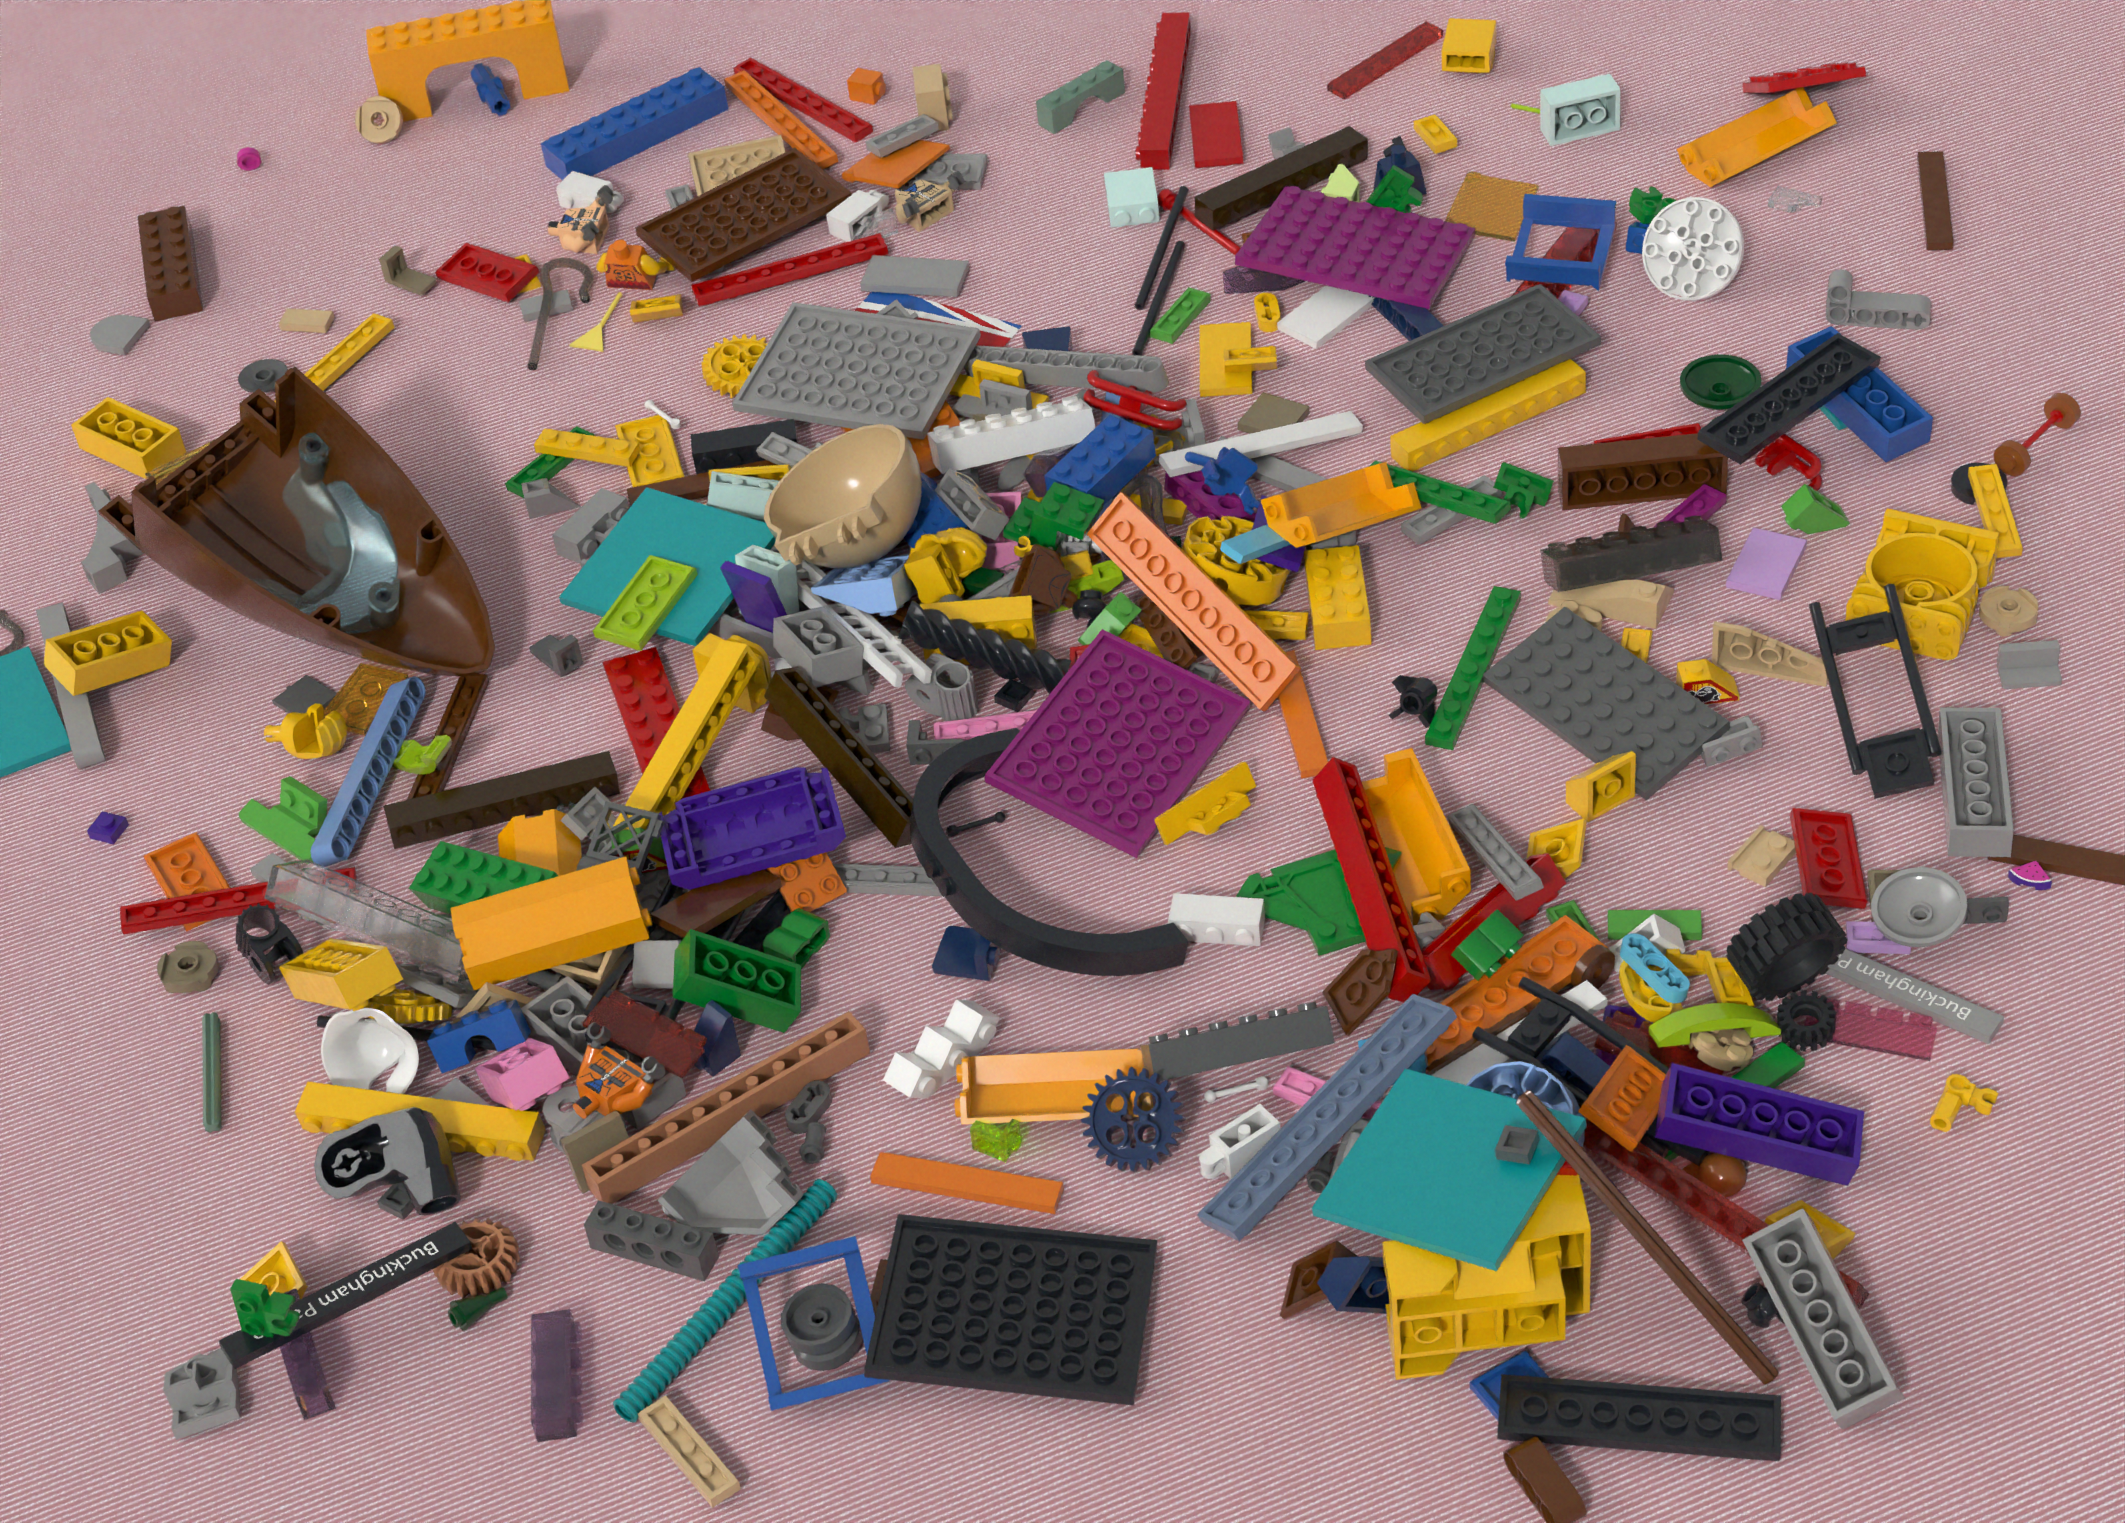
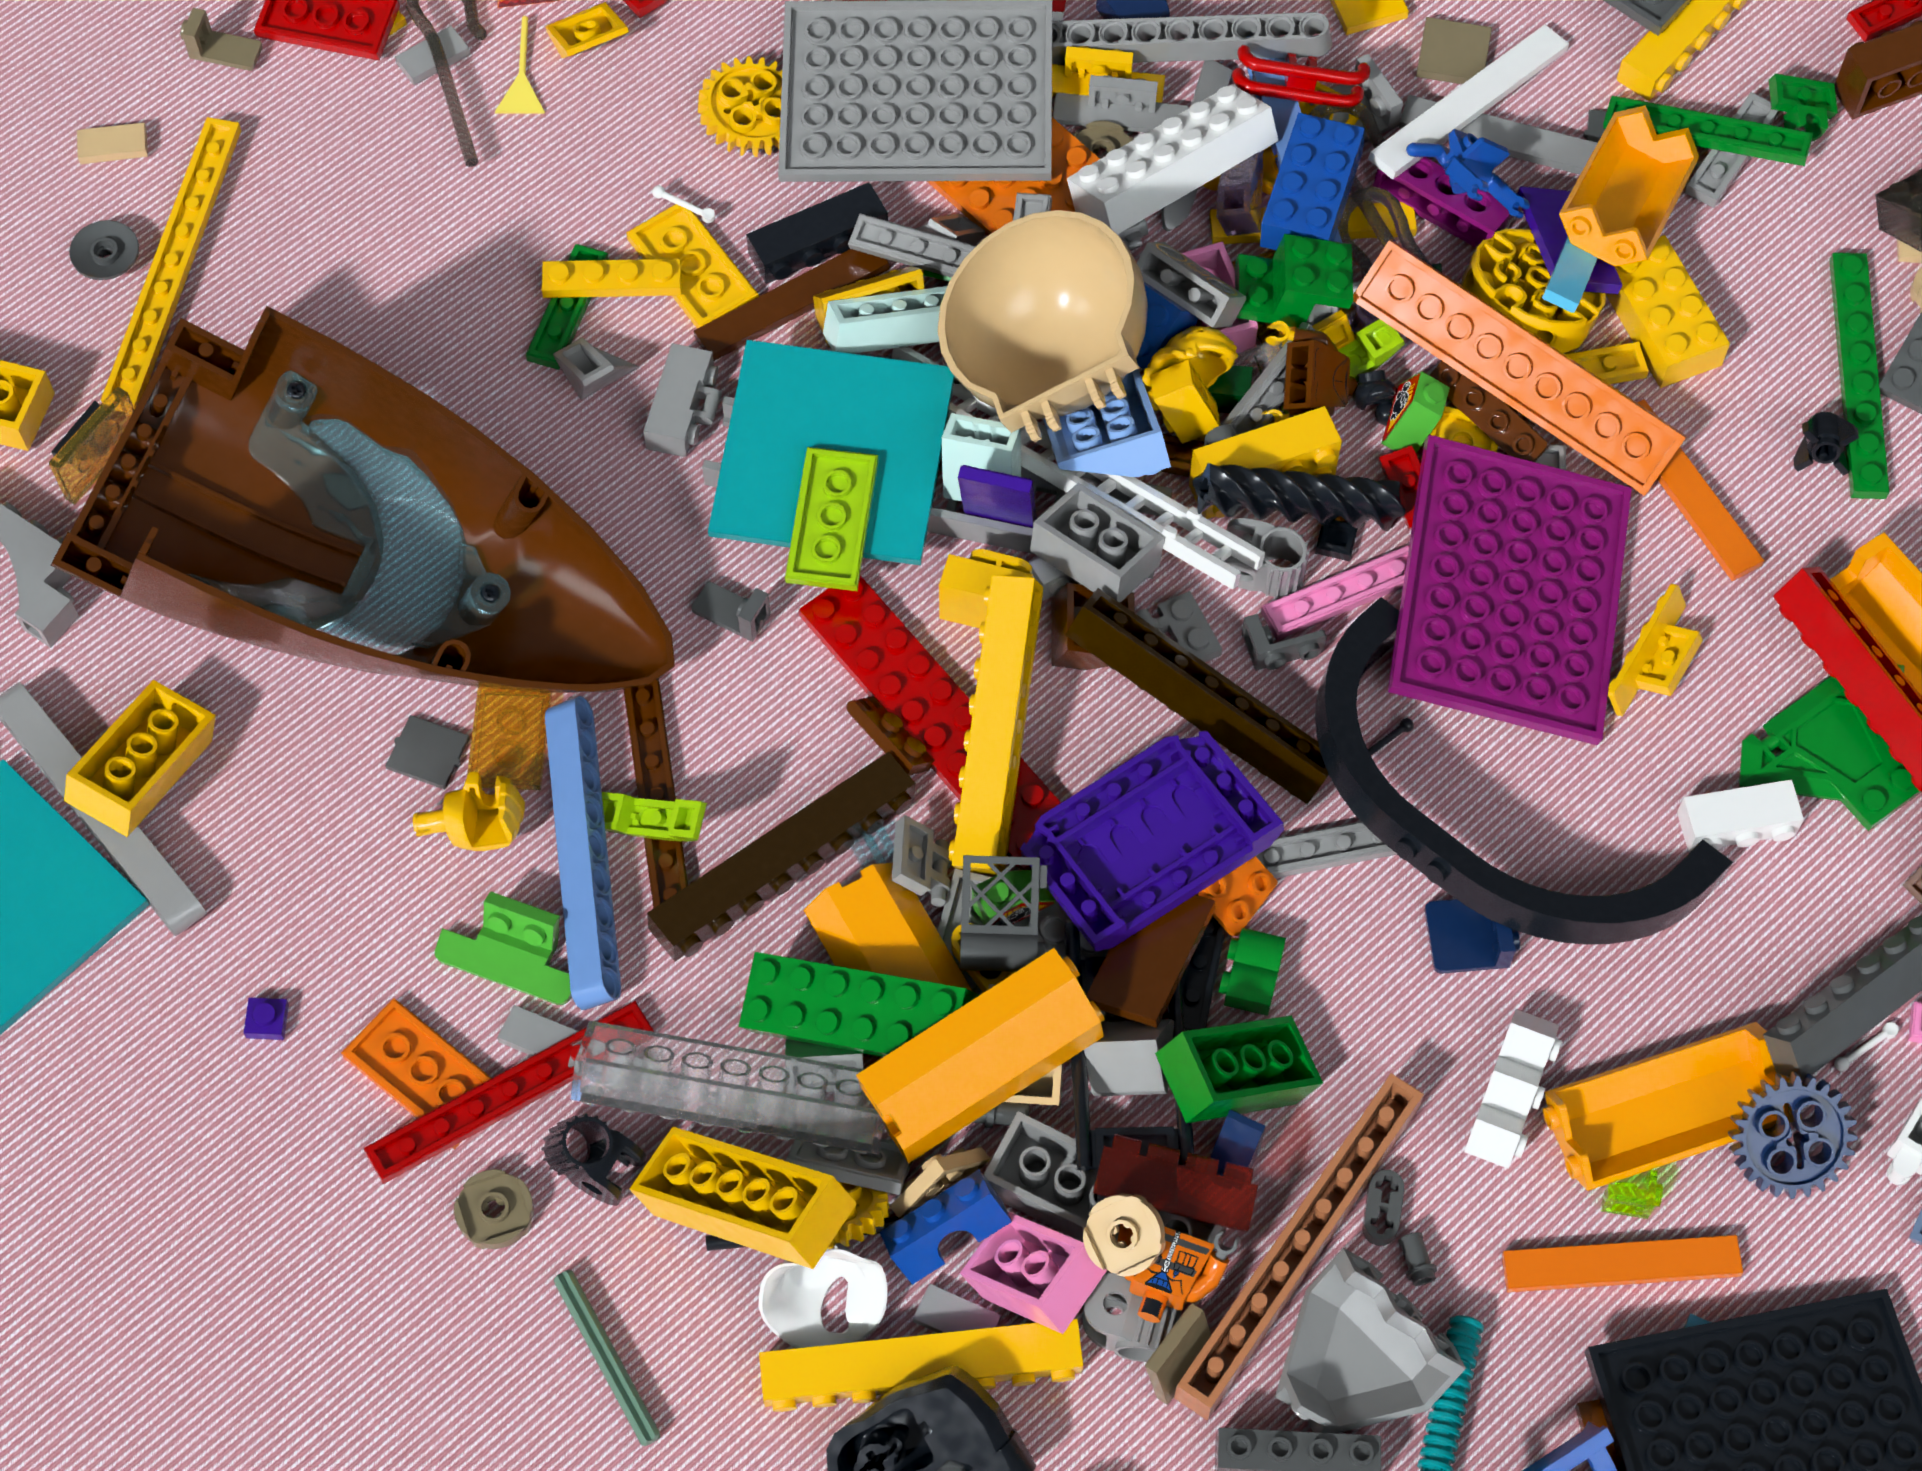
camera: 25 degrees left, 20 degrees up
(590, 1051) = (1133, 1213): none -> tan plate
(620, 745) = (889, 734): none -> reddish brown hinge

